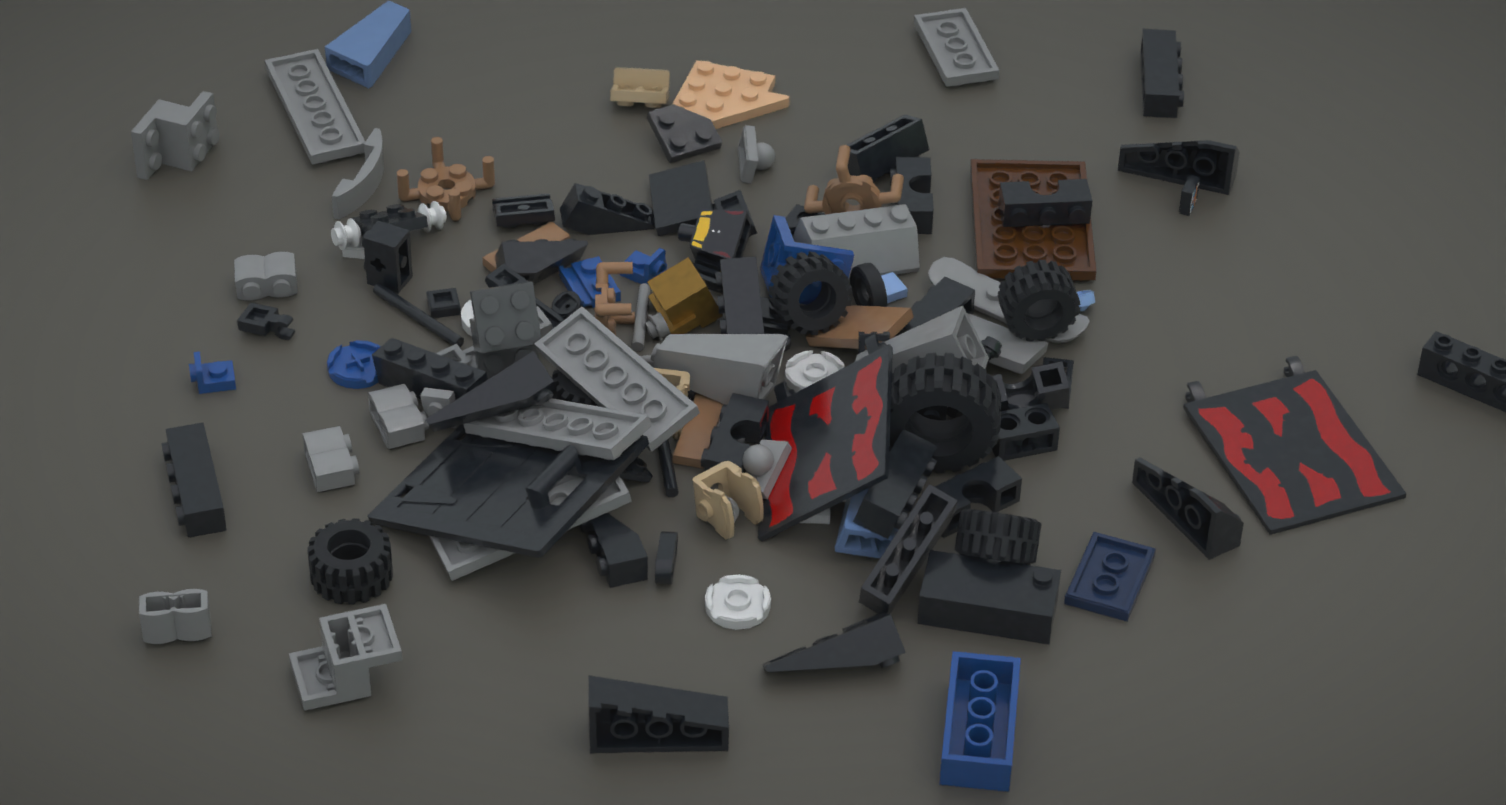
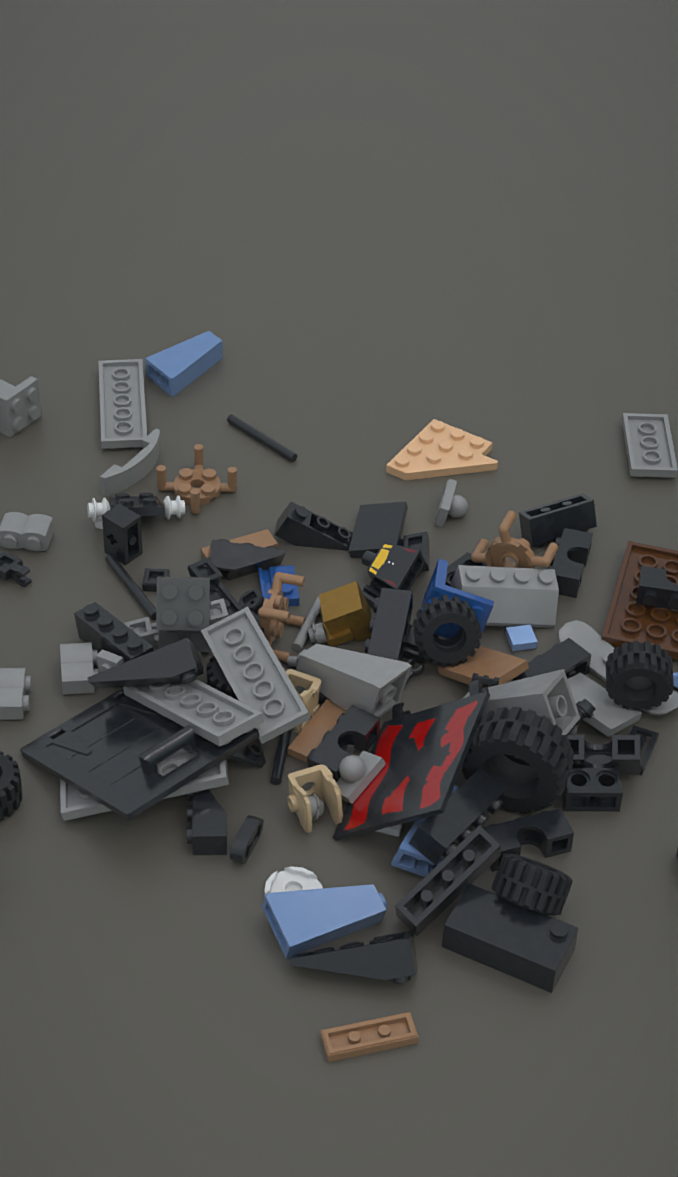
camera: 15 degrees right, 0 degrees up
(353, 365) = (60, 618): blue tile -> none
(500, 118) = (264, 439): none -> black bar
(518, 210) = (248, 515): black plate -> none
(640, 86) = (380, 432): tan bracket -> none
(646, 266) = (326, 580): blue bracket -> none
(654, 718) = (175, 987): black wedge -> none
(683, 132) = (400, 476): black plate -> none
(780, 616) = (321, 915): none -> medium blue slope
(809, 368) = (431, 694): white tile -> none
(868, 286) = (501, 634): black tyre -> none
(874, 725) = (369, 1036): none -> medium nougat tile
(980, 721) = (459, 1057): blue brick -> none
(1110, 576) = (627, 940): dark blue tile -> none

